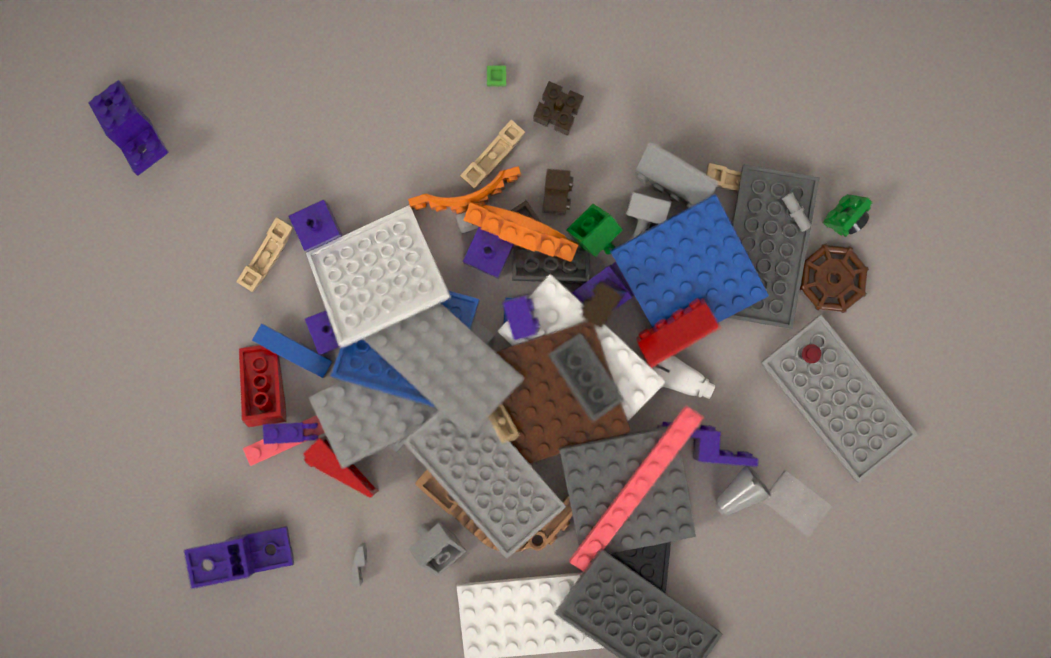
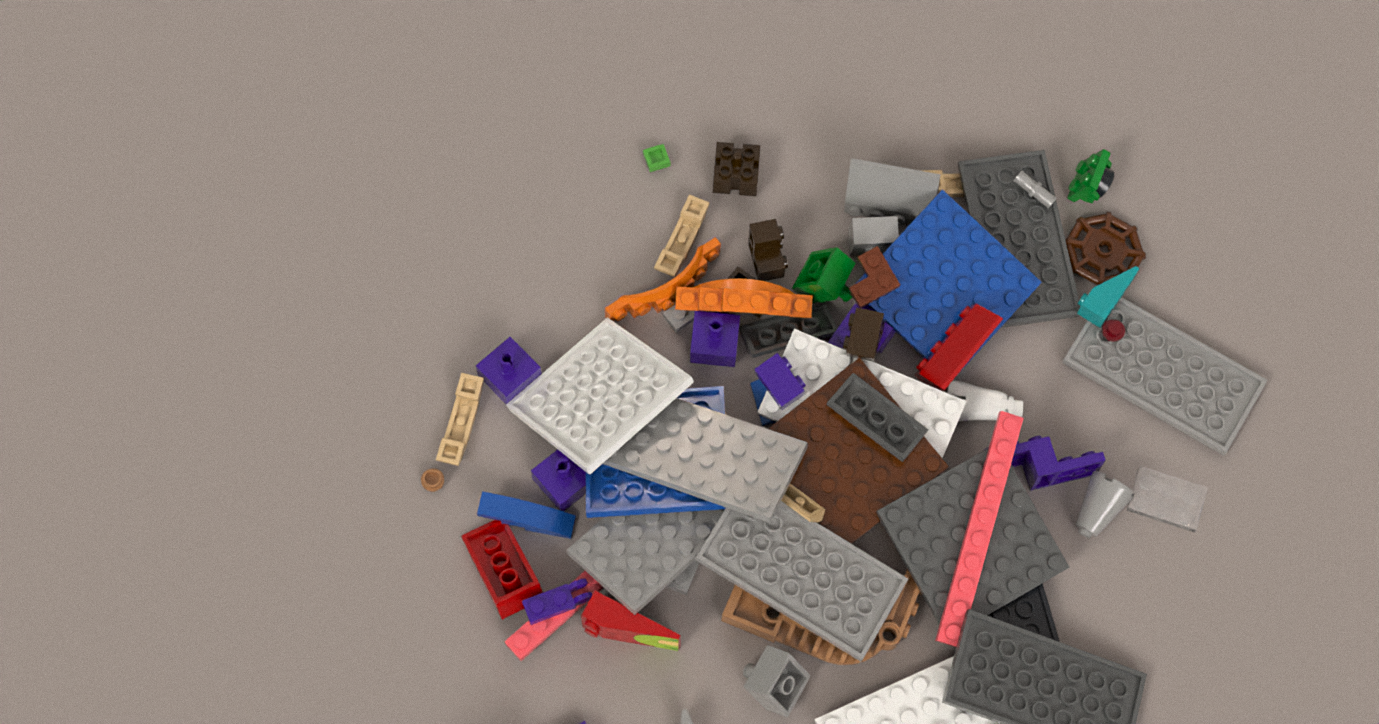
camera: 20 degrees left, 20 degrees down
(128, 127) = (261, 330): dark purple bracket -> none
(230, 296) = (432, 480): none -> medium nougat plate
(635, 254) = (879, 278): none -> copper plate
(812, 327) = (1104, 297): none -> teal slope

